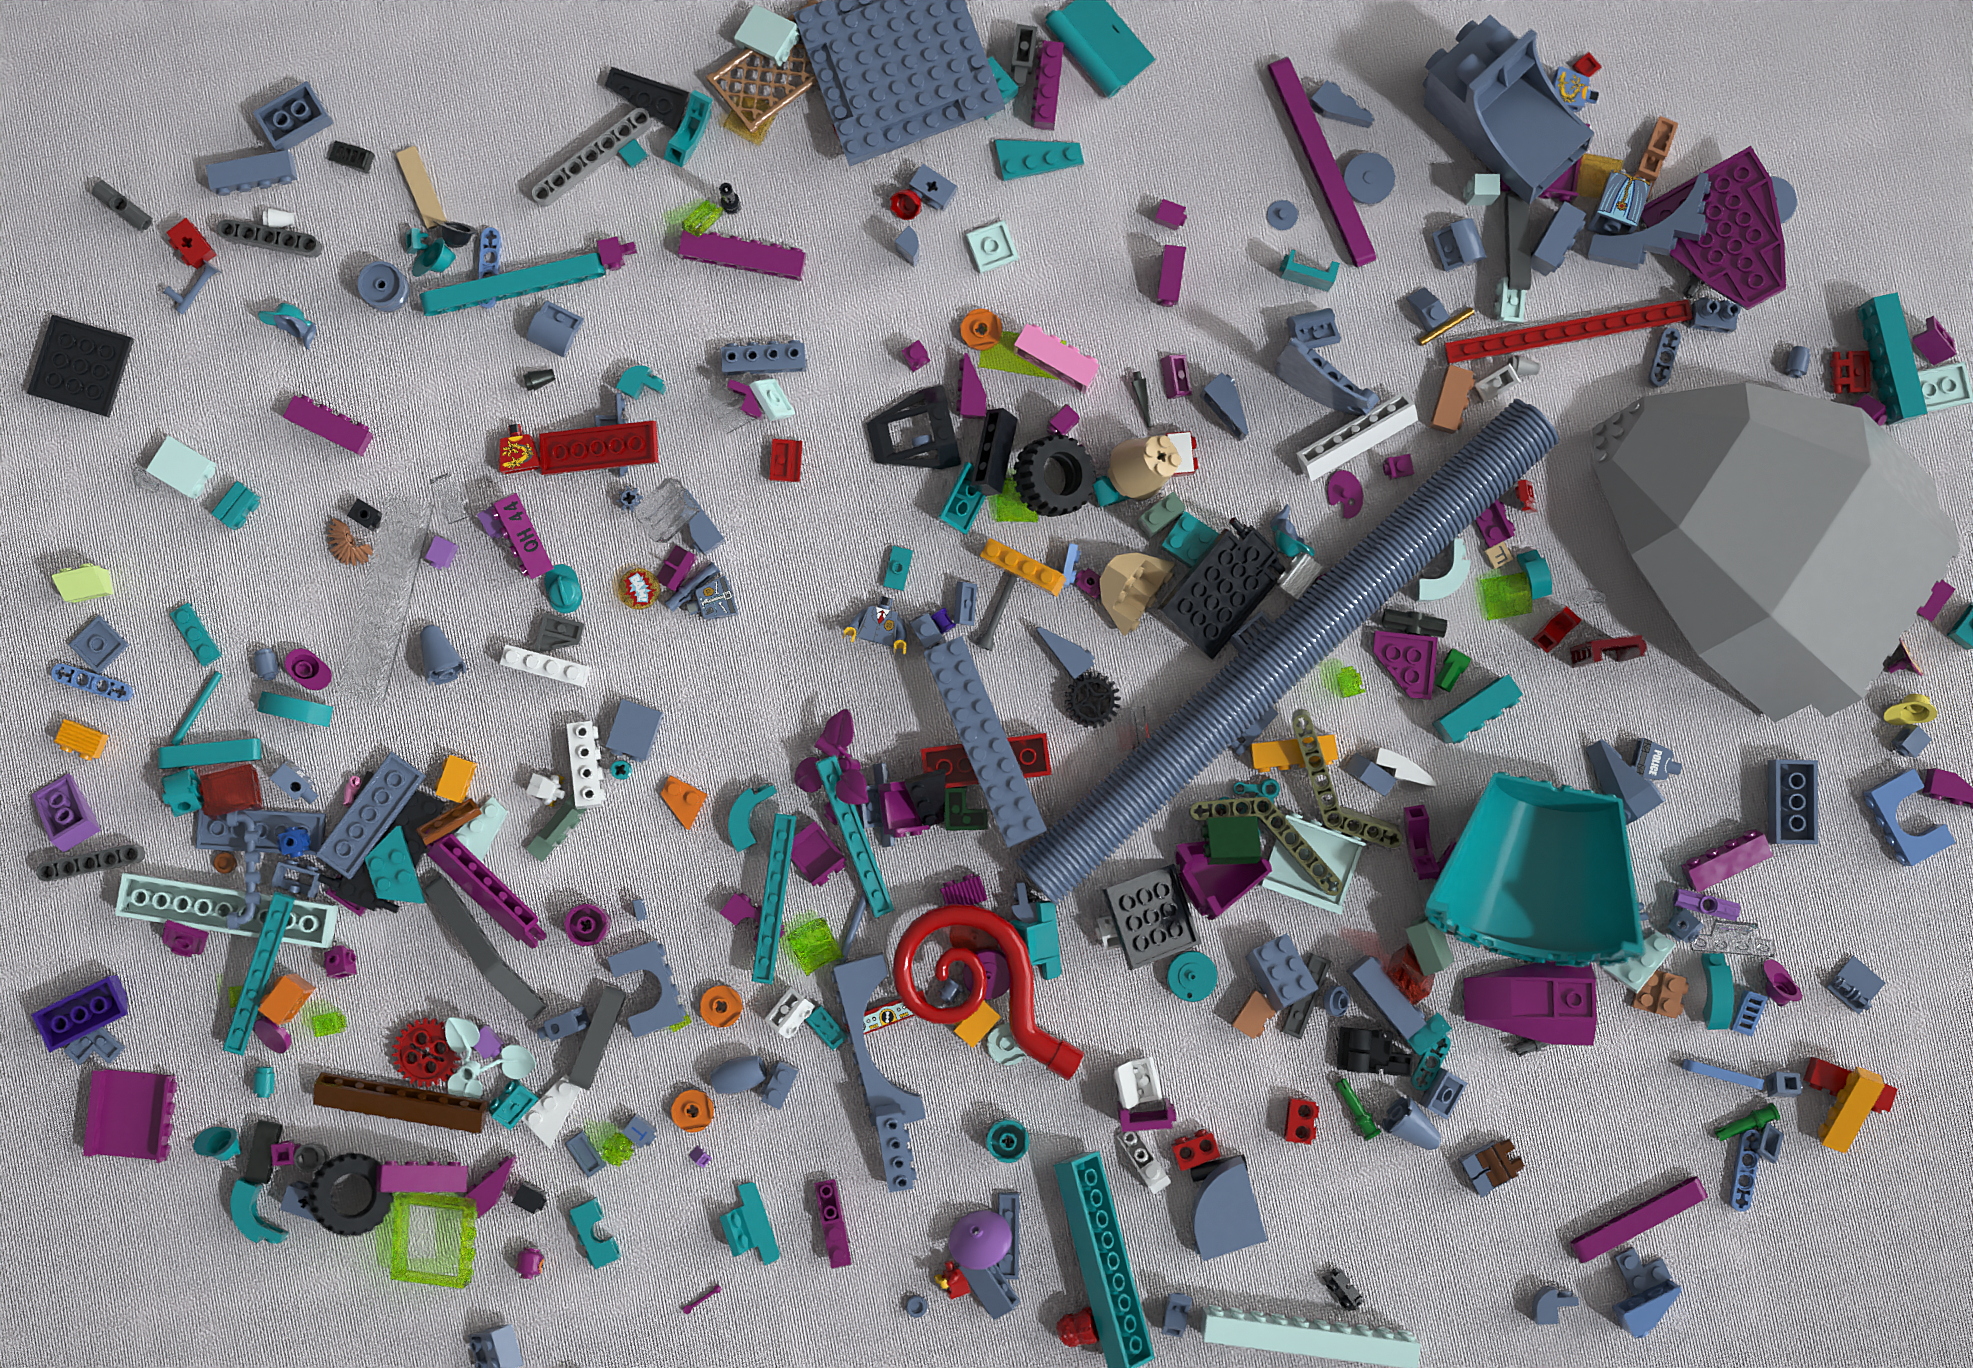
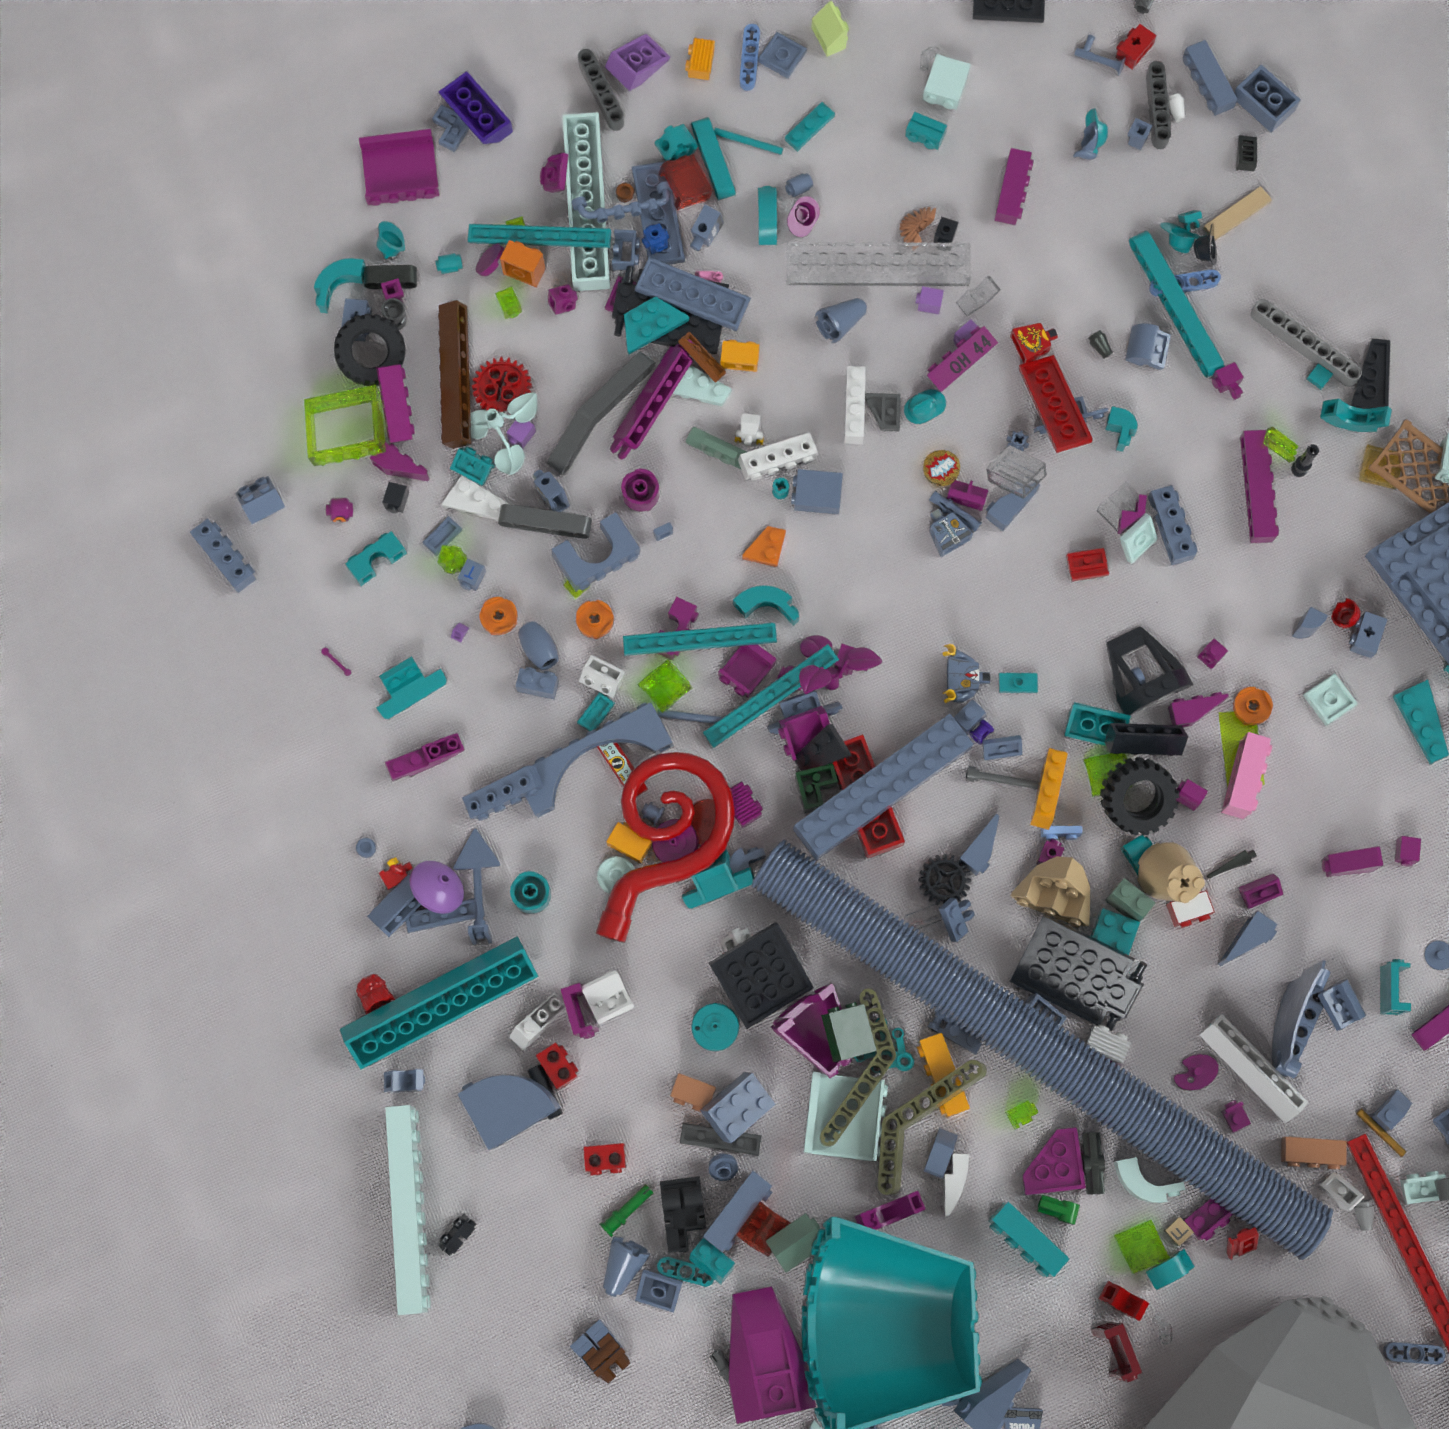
camera: 85 degrees right, 10 degrees down
(300, 270) = (1139, 133): none -> sand blue brick
(385, 275) = (1144, 201): sand blue wheel -> none
(954, 1189) = (476, 856): none -> sand blue piece
(1134, 700) = (954, 919): none -> sand blue hinge
(1286, 535) = (1142, 1024): hair -> none

